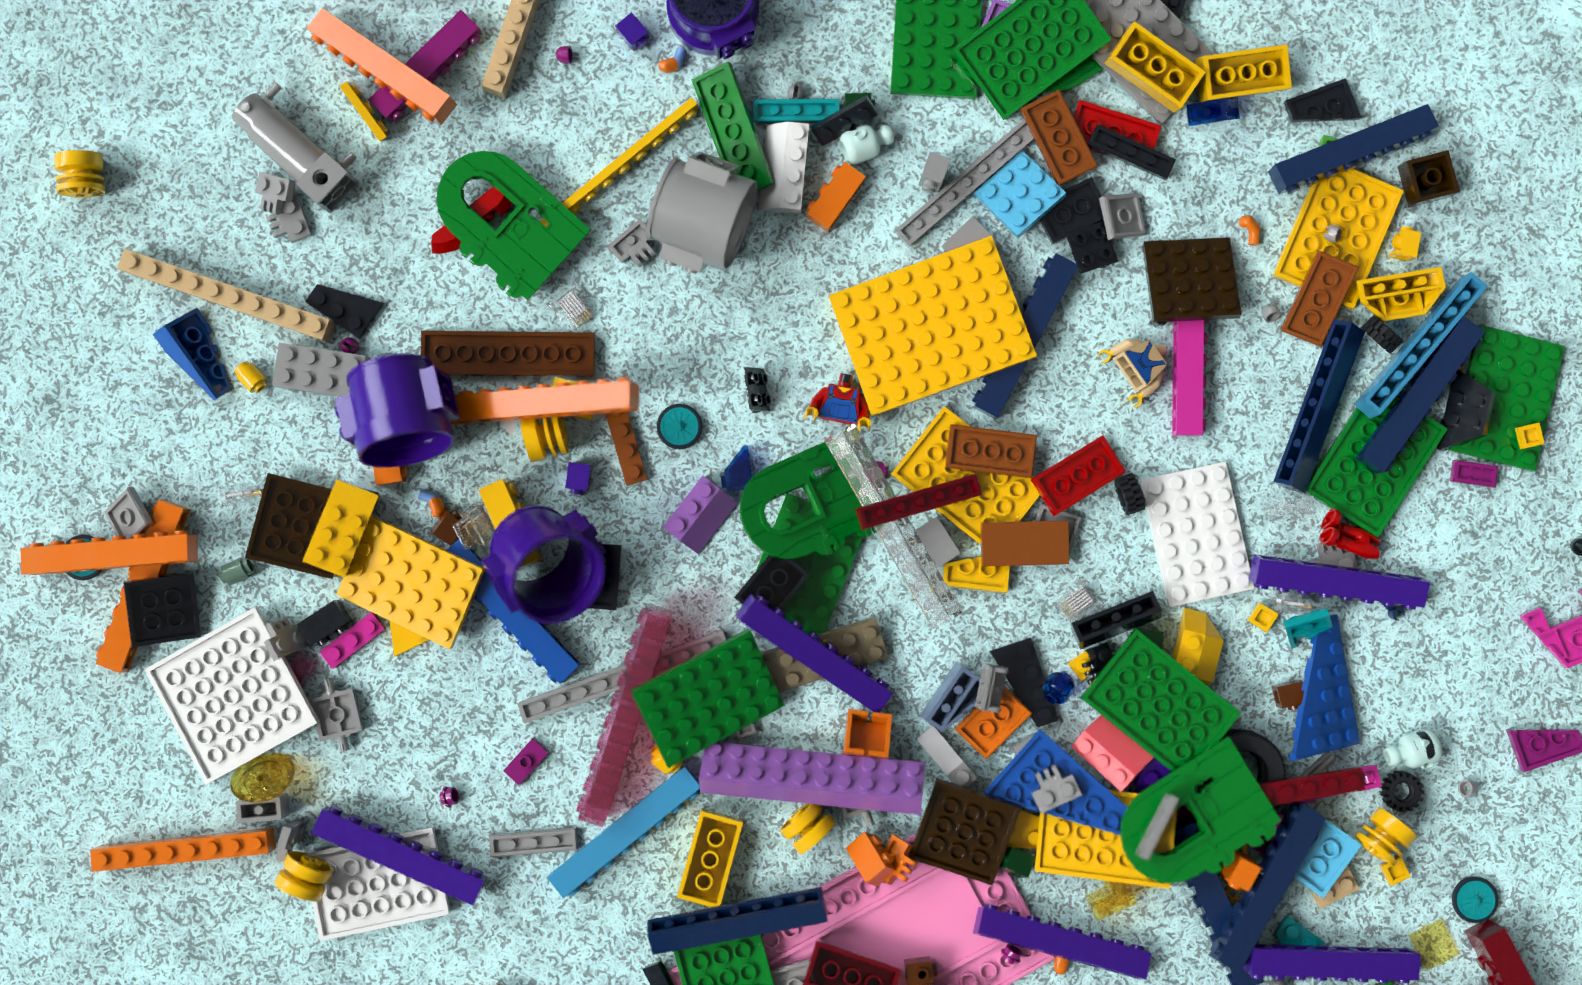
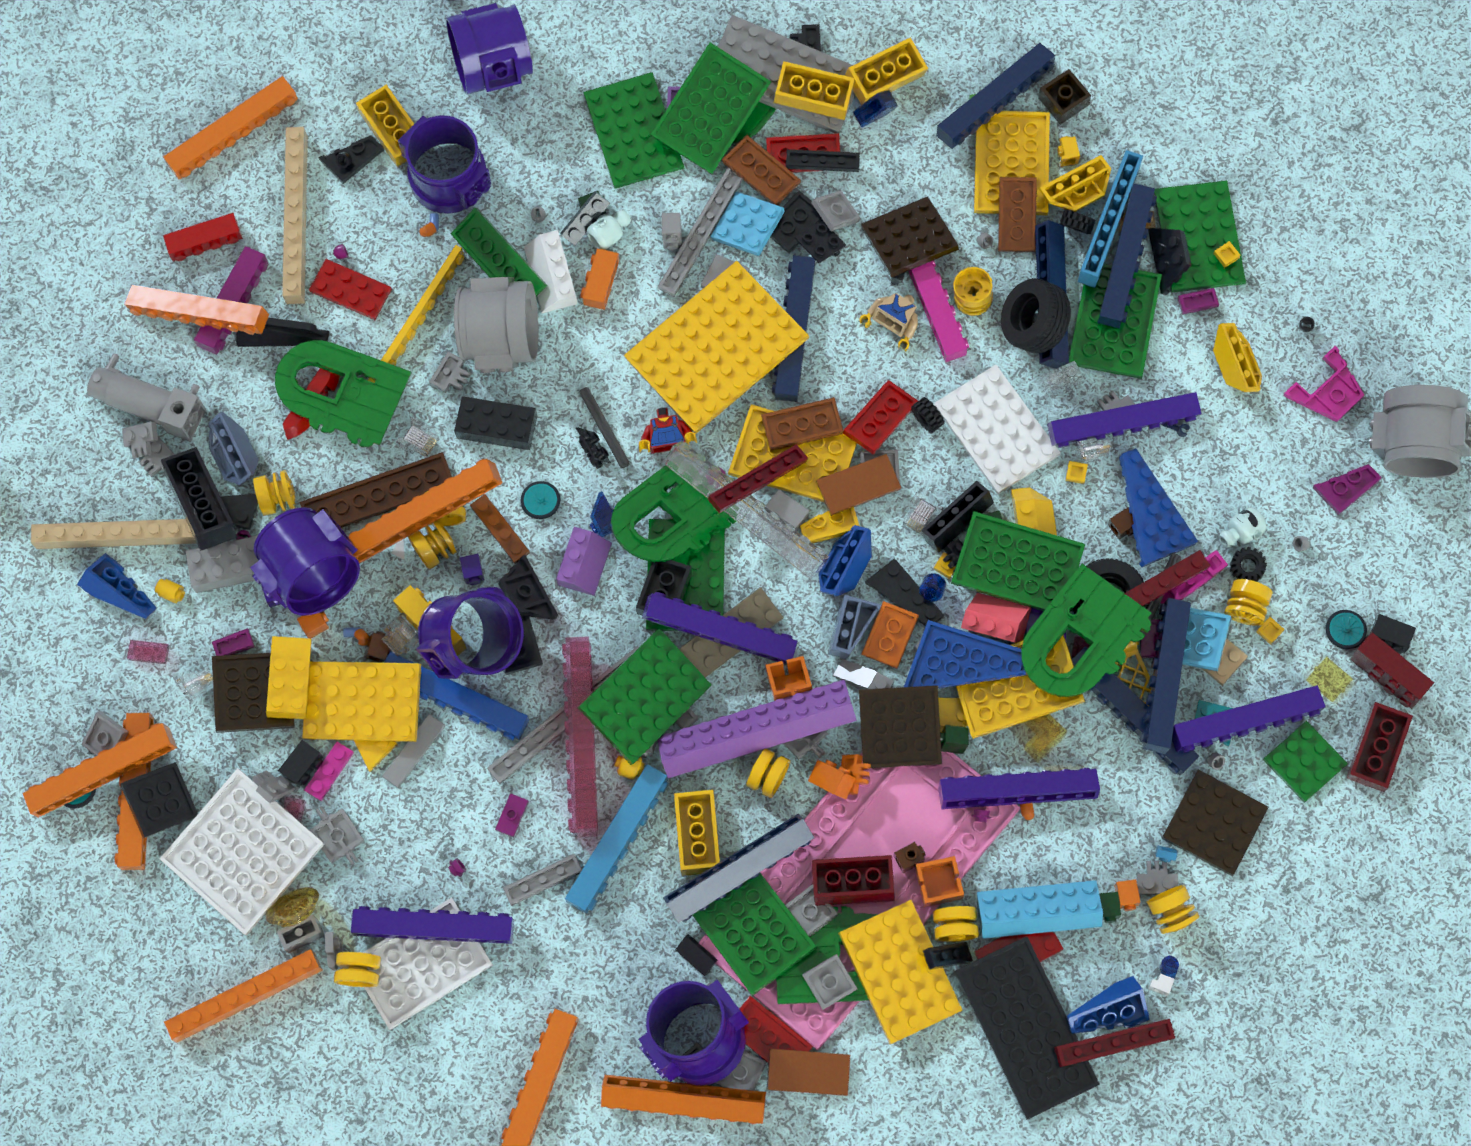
camera: 15 degrees left, 15 degrees down
(206, 436) = (148, 652): none -> clear pink plate
(236, 571) = (210, 750): sand green brick -> none
(298, 462) = (233, 643): none -> magenta plate
(309, 291) = (198, 498): none -> black brick
(364, 110) = (186, 346): yellow wing -> none
(369, 244) = (231, 449): none -> sand blue wedge
(396, 312) = (274, 492): none -> yellow wheel
(442, 657) = (413, 751): none -> light grey tile
(474, 129) = (282, 333): none -> black wedge
(560, 102) = (350, 289): none -> red plate
(626, 525) = (526, 591): none -> black wing
(632, 32) = (390, 215): dark purple brick -> none
(662, 321) = (495, 423): none -> black brick
(777, 370) = (604, 427): none -> dark grey axle
(793, 110) = (528, 231): teal plate -> none
(977, 626) = (846, 562): none -> blue wedge
(991, 687) = (875, 601): light grey hinge -> none
(1055, 790) = (959, 660): light grey hinge -> none
(1156, 826) = (1049, 647): light grey tile -> none
(1241, 871) = (1137, 670): orange brick -> none
(1244, 362) = (976, 282): none -> yellow wheel
(1253, 228) = (944, 183): orange arm -> none
(1307, 626) = (1112, 462): teal wing -> none
(1314, 443) = (1051, 320): none -> black tyre
(1325, 103) = (960, 72): black wing -> none
(1333, 234) = (1007, 162): light grey hinge -> none
(1348, 537) = (1119, 385): red piece -> none
(1487, 560) = (1236, 359): none -> yellow wedge
(1521, 924) = (1393, 633): none -> black brick

